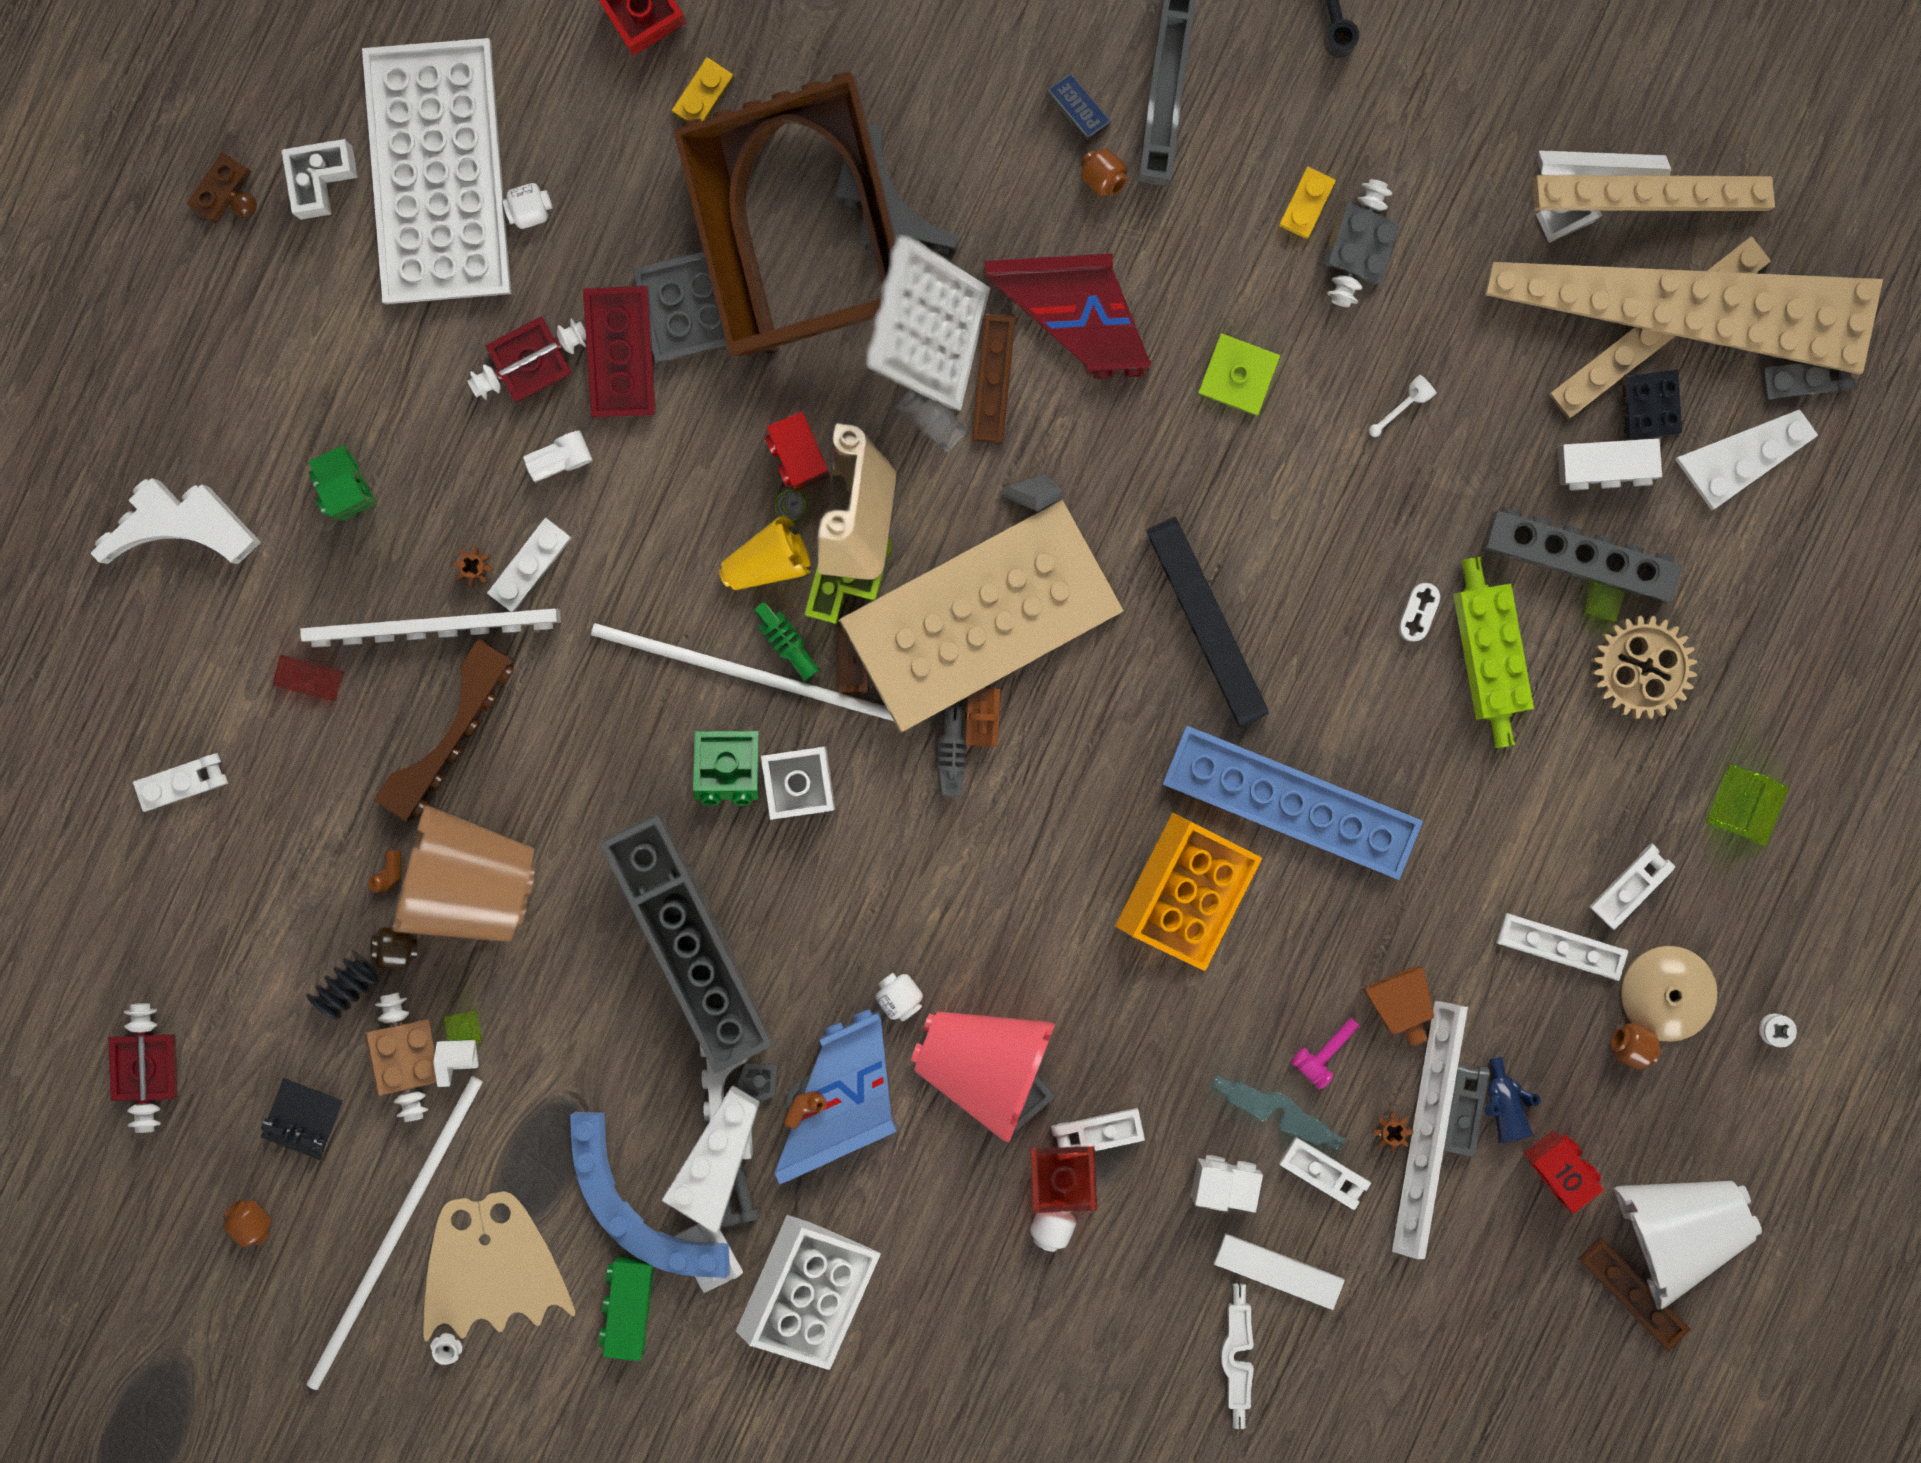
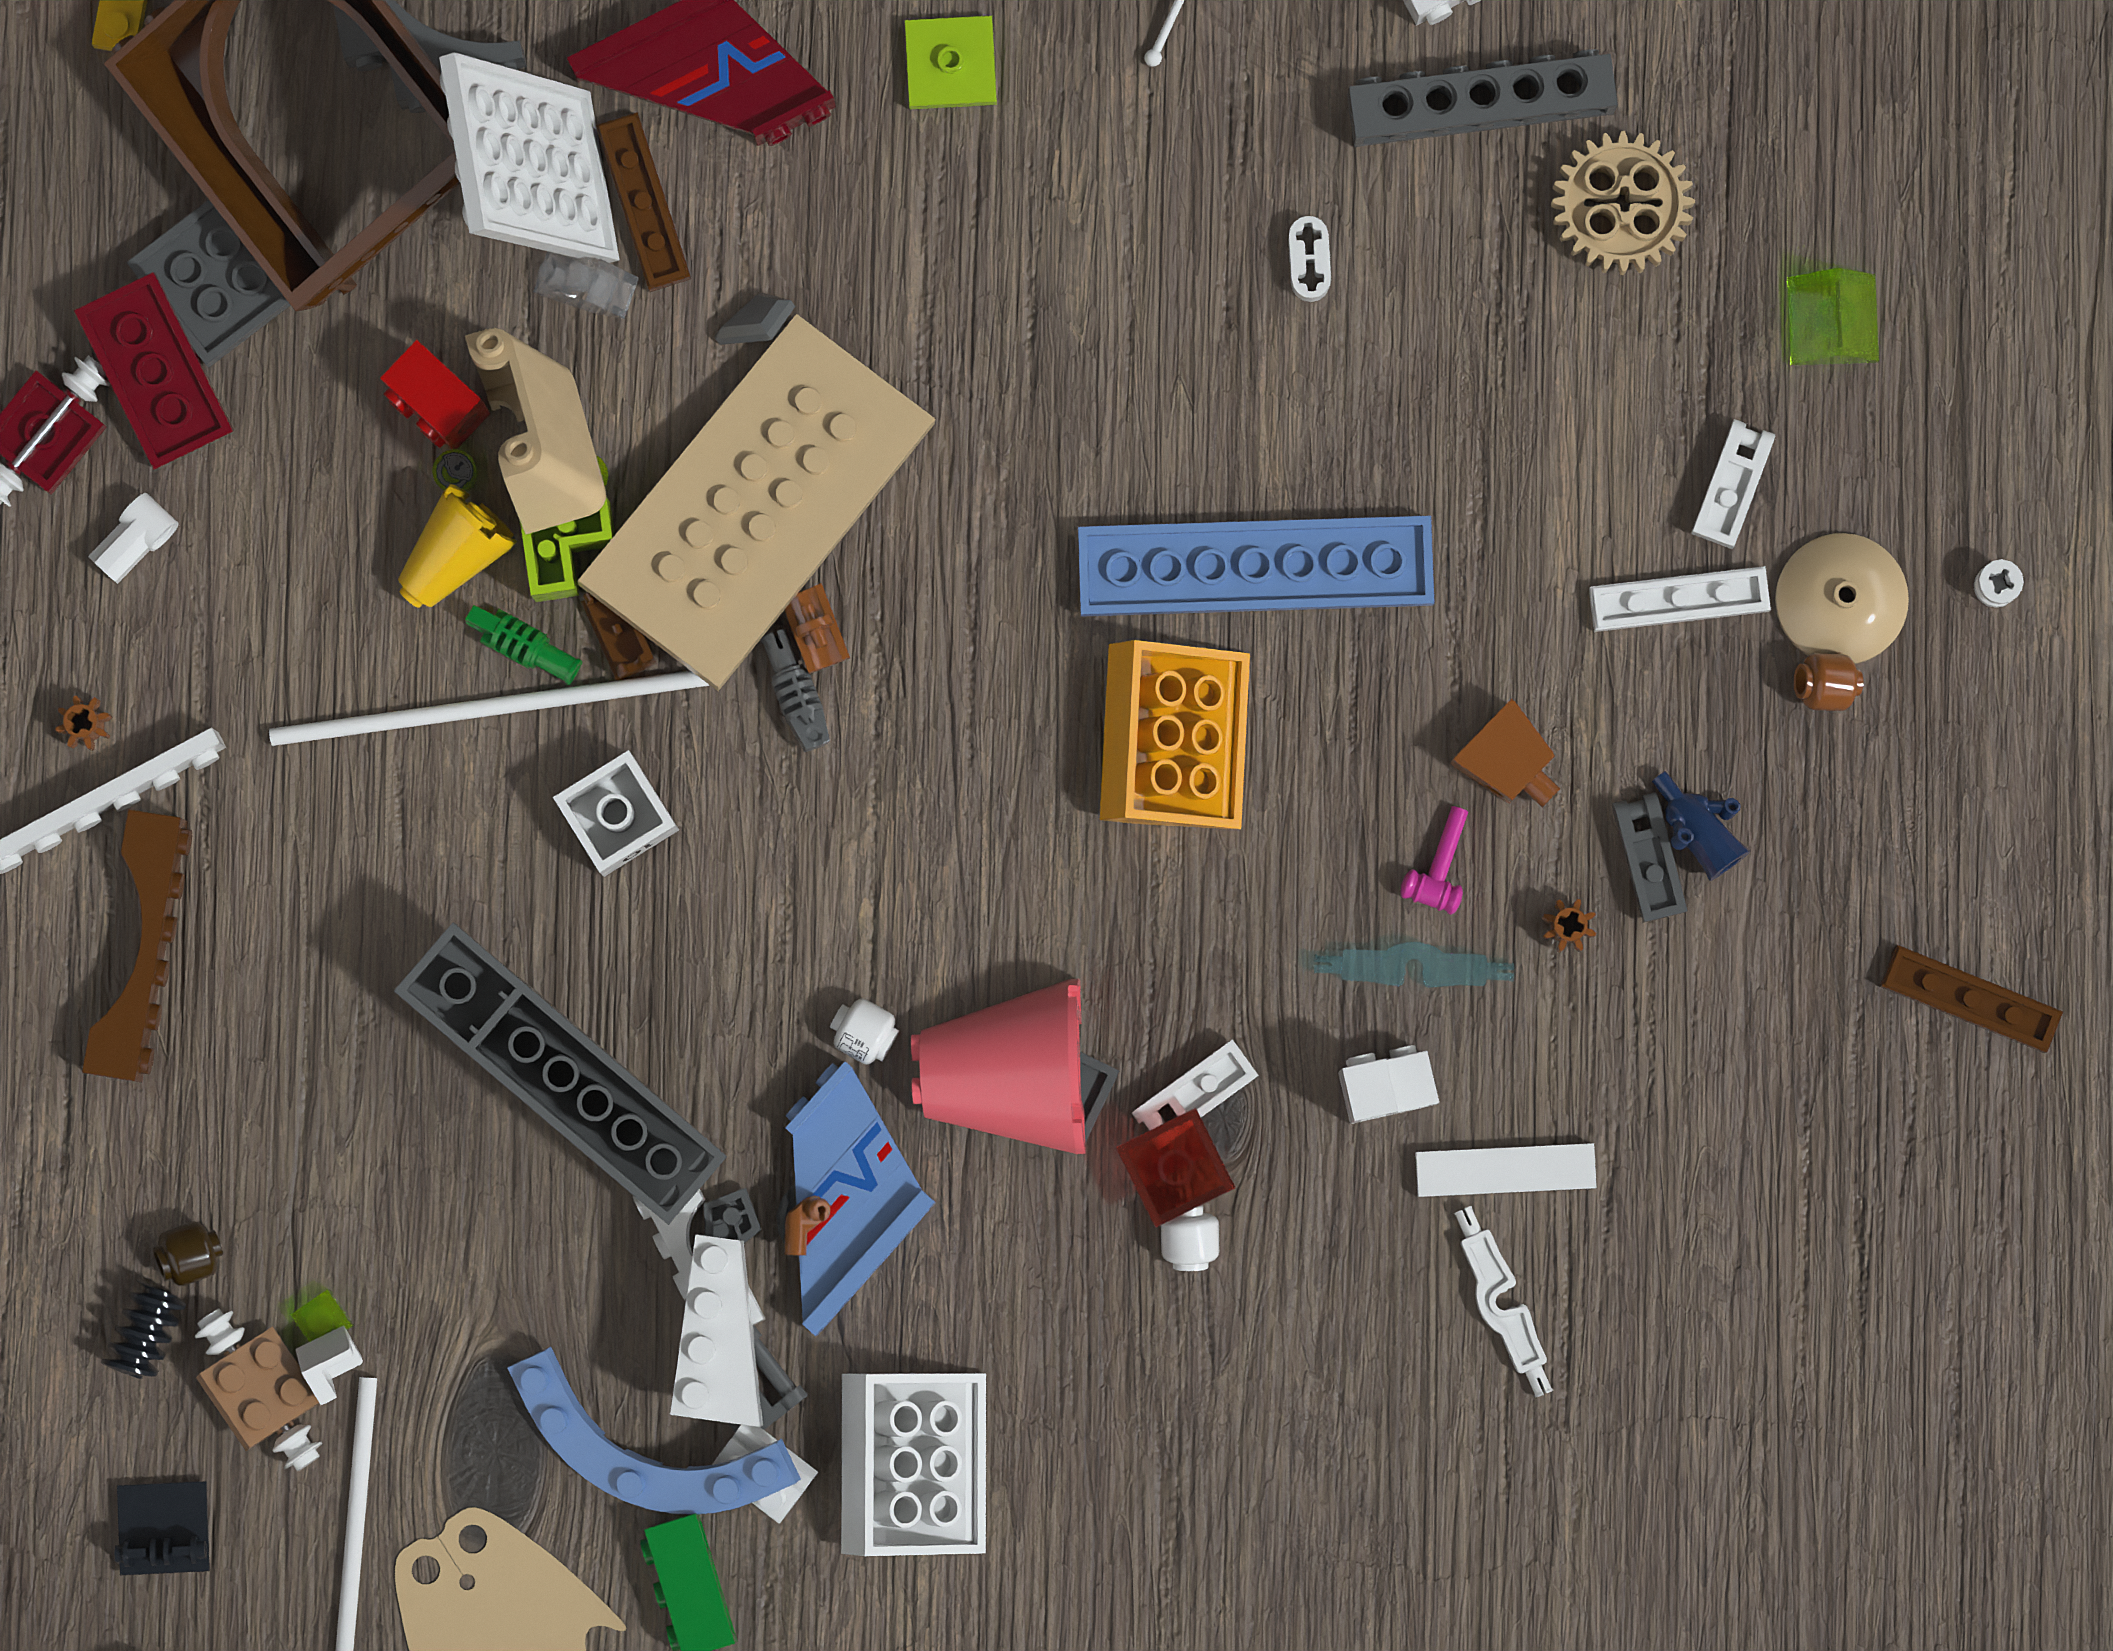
camera: 20 degrees left, 5 degrees down
(389, 875) = (143, 1165): dark orange arm -> none
(464, 881) = (241, 1119): medium nougat cone -> none
(529, 565) = (155, 691): white plate -> none
(726, 767) = (516, 835): green plate -> none
(1207, 622) = (1047, 386): black beam -> none
(1323, 1172) = (1506, 1017): white plate -> none
(1429, 1129) = (1615, 902): white plate -> none
(1492, 651) = (1423, 266): lime plate -> none
(1562, 1170) = (1807, 876): red brick -> none
(1603, 602) = (1536, 145): clear neon green plate -> none
(1687, 1230) = (2001, 888): white cone -> none

